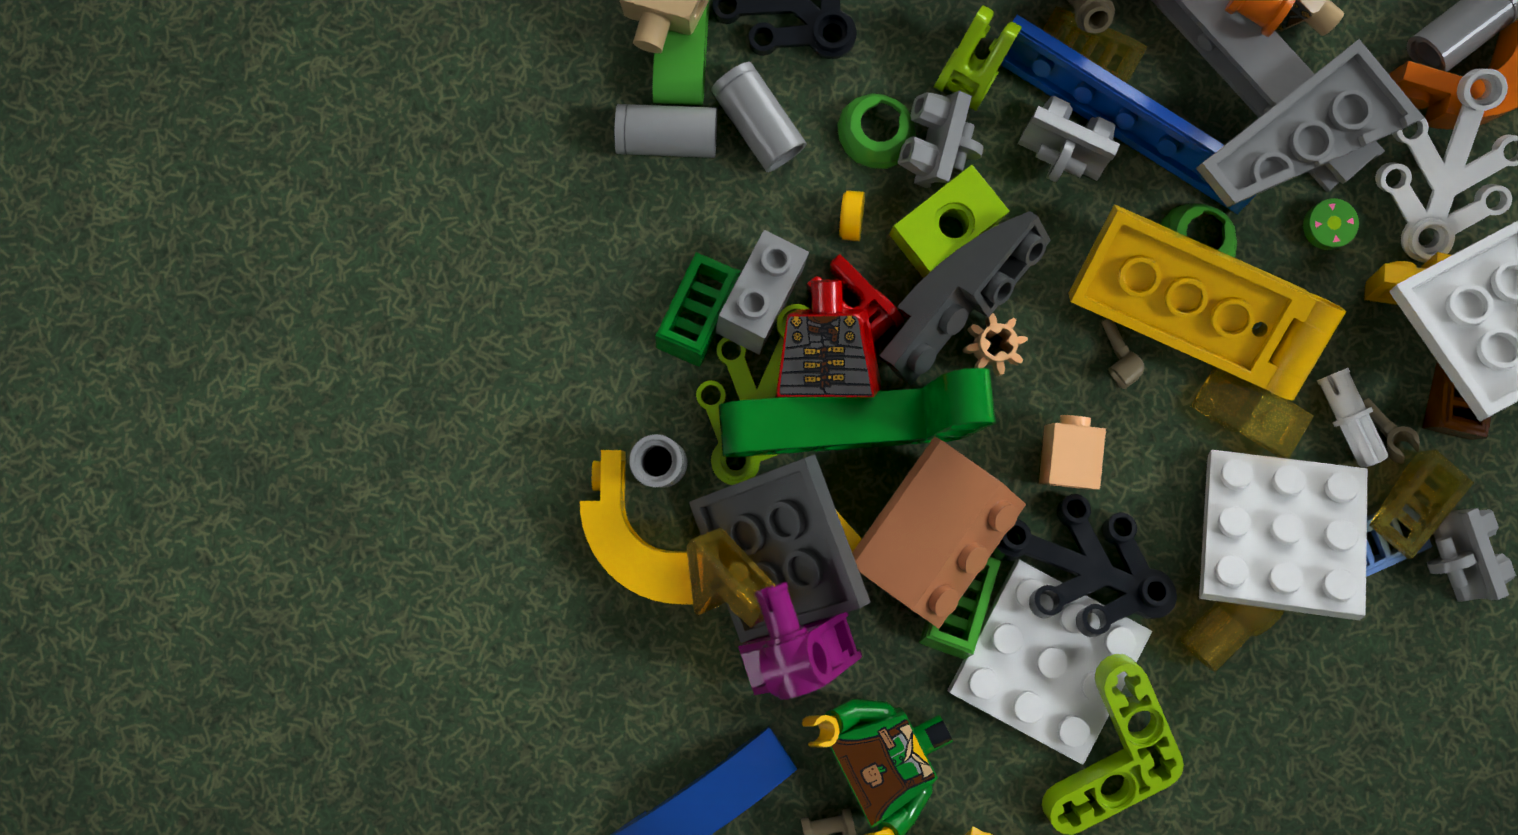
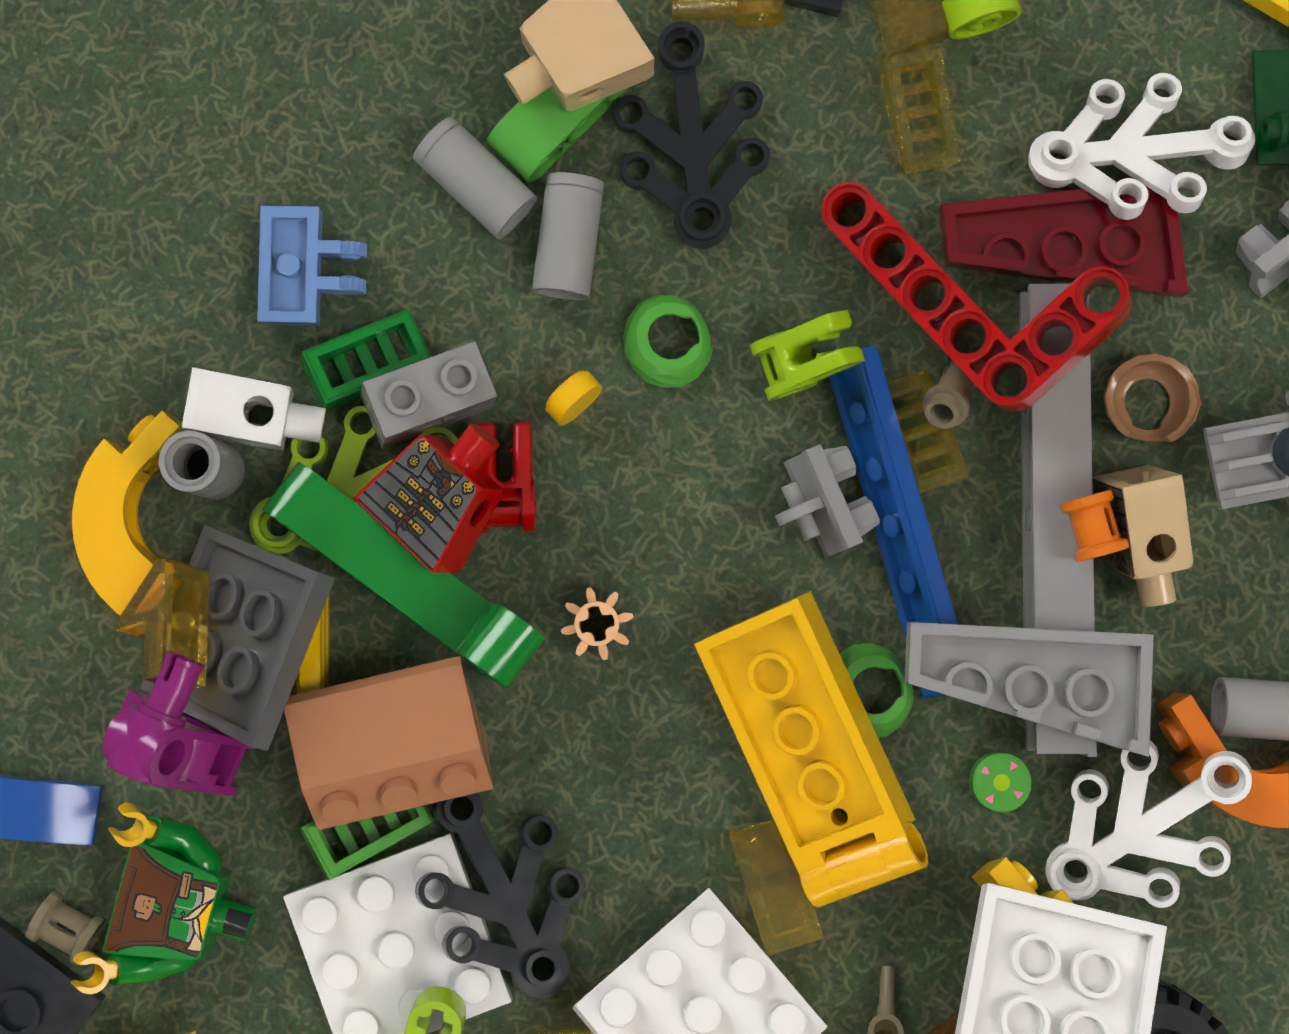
camera: 40 degrees right, 0 degrees up
(599, 289) = (291, 266): none -> medium blue hinge
(637, 411) = (222, 404): none -> white torso
(947, 139) = (716, 406): light grey hips -> none
(964, 198) = (684, 464): lime brick -> none
(971, 278) = (624, 544): dark grey slope -> none
(1072, 453) = (576, 781): light nougat brick -> none
(1129, 365) = (700, 749): dark tan hand -> none
(1353, 418) = (861, 972): white axle -> none

